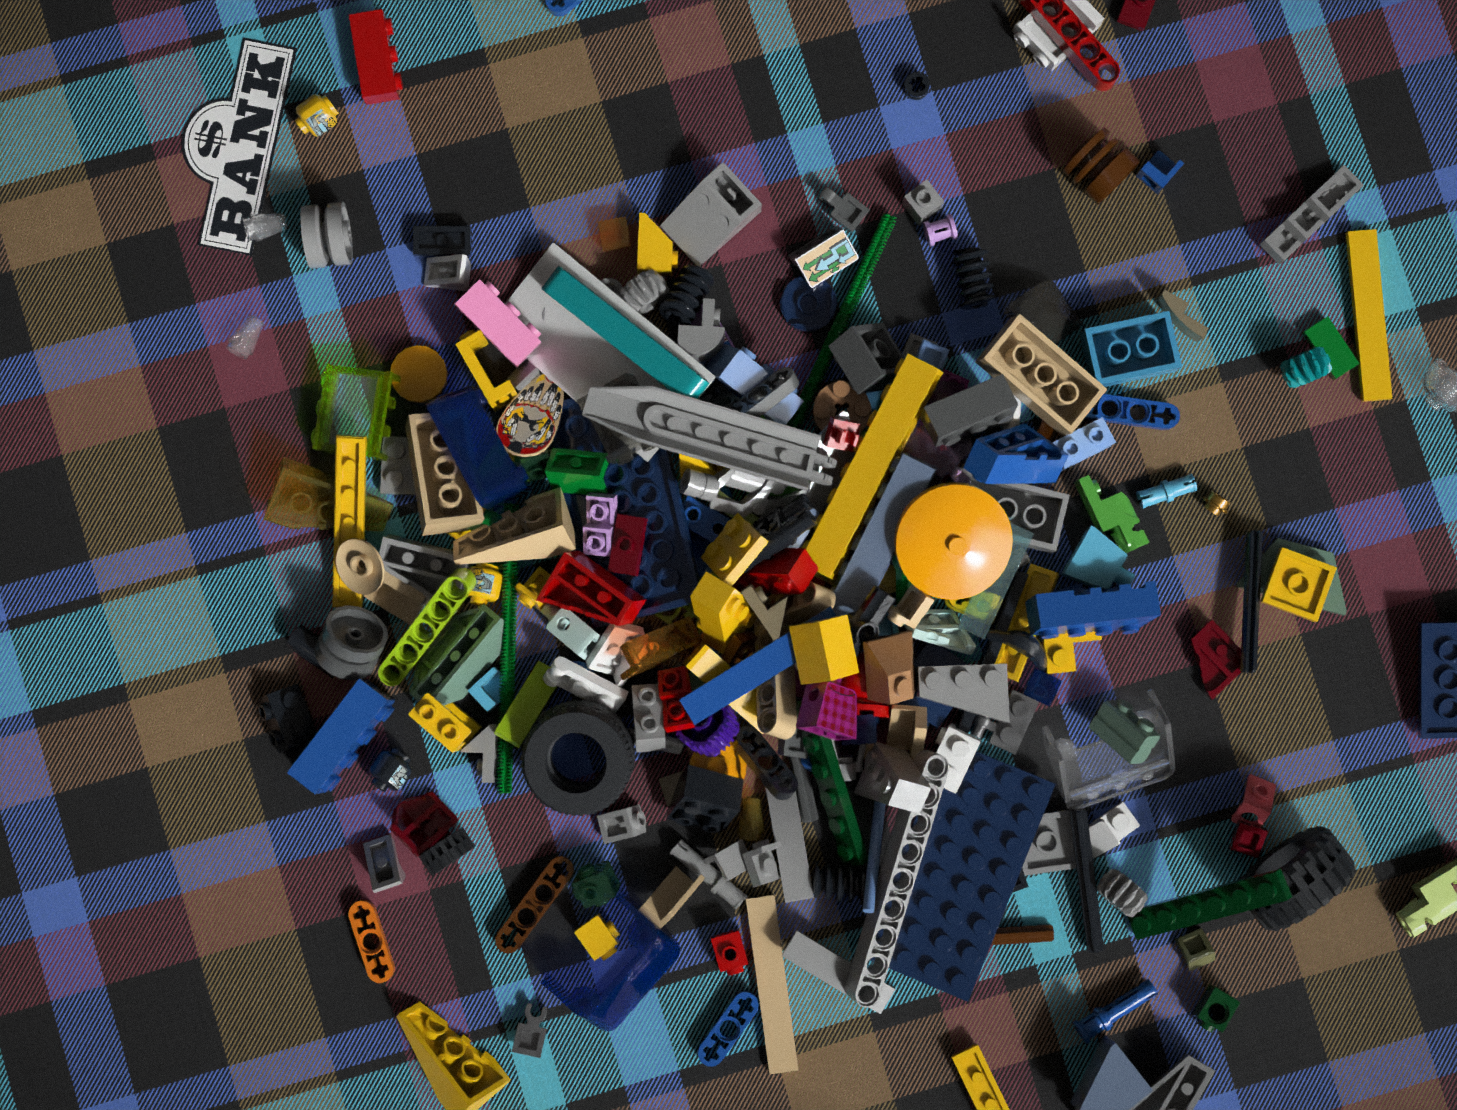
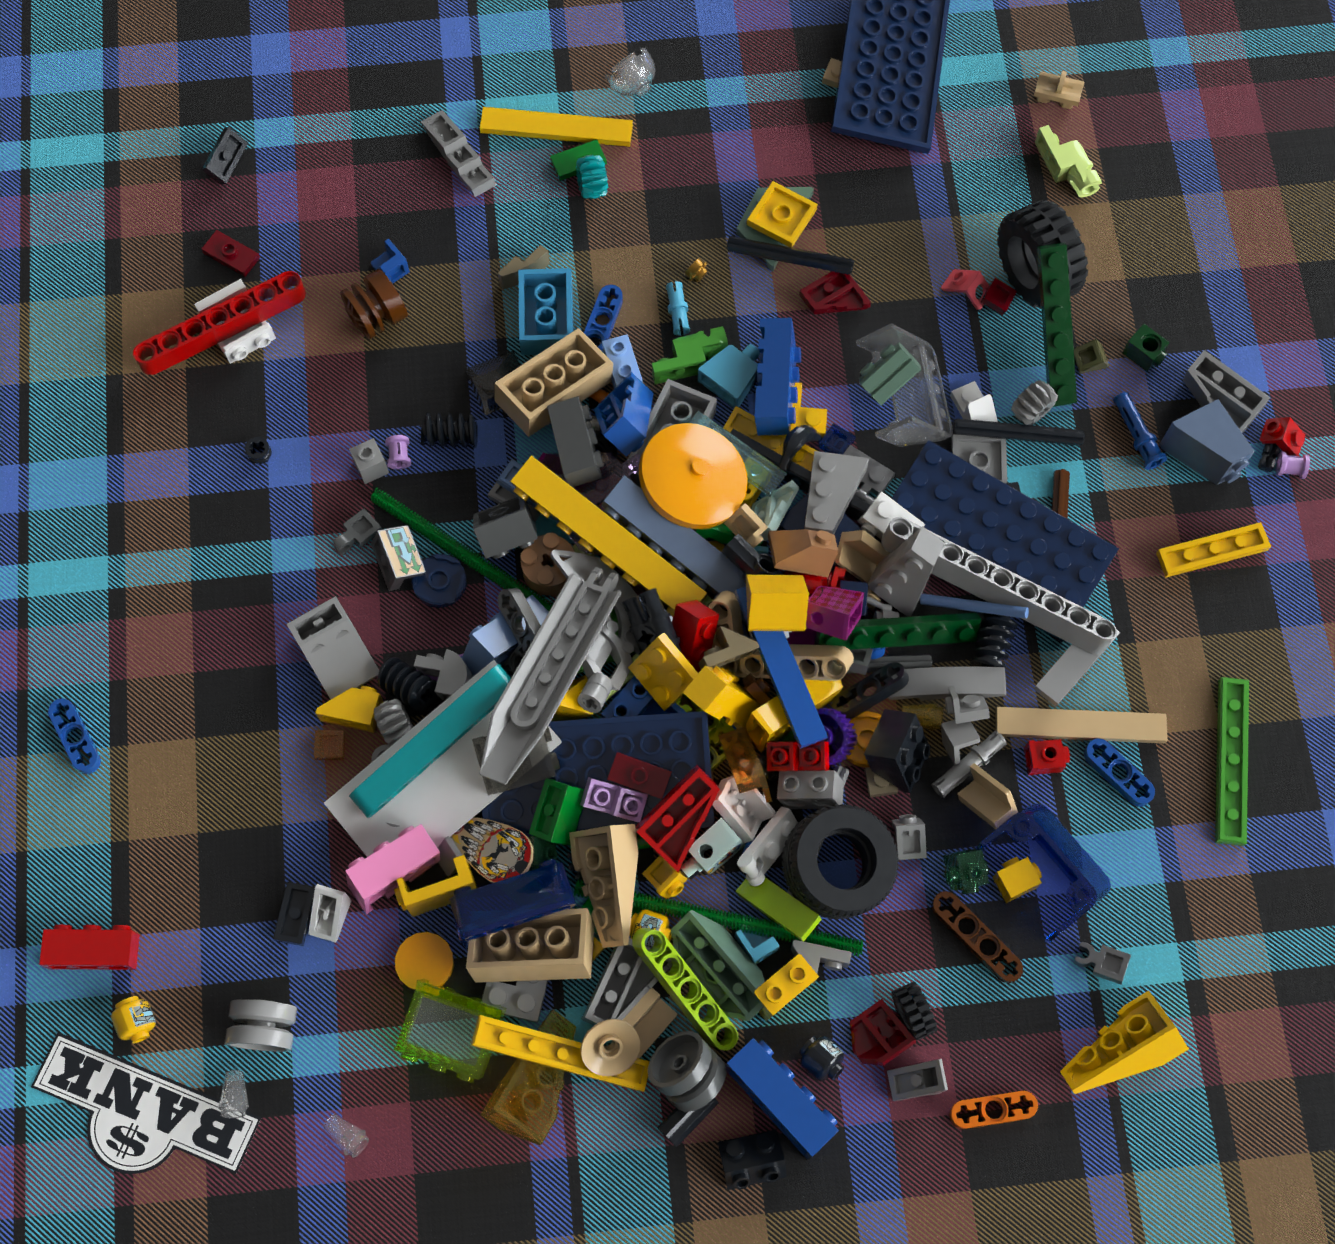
camera: 80 degrees left, 15 degrees down
(842, 434) = (573, 557): red tile -> none

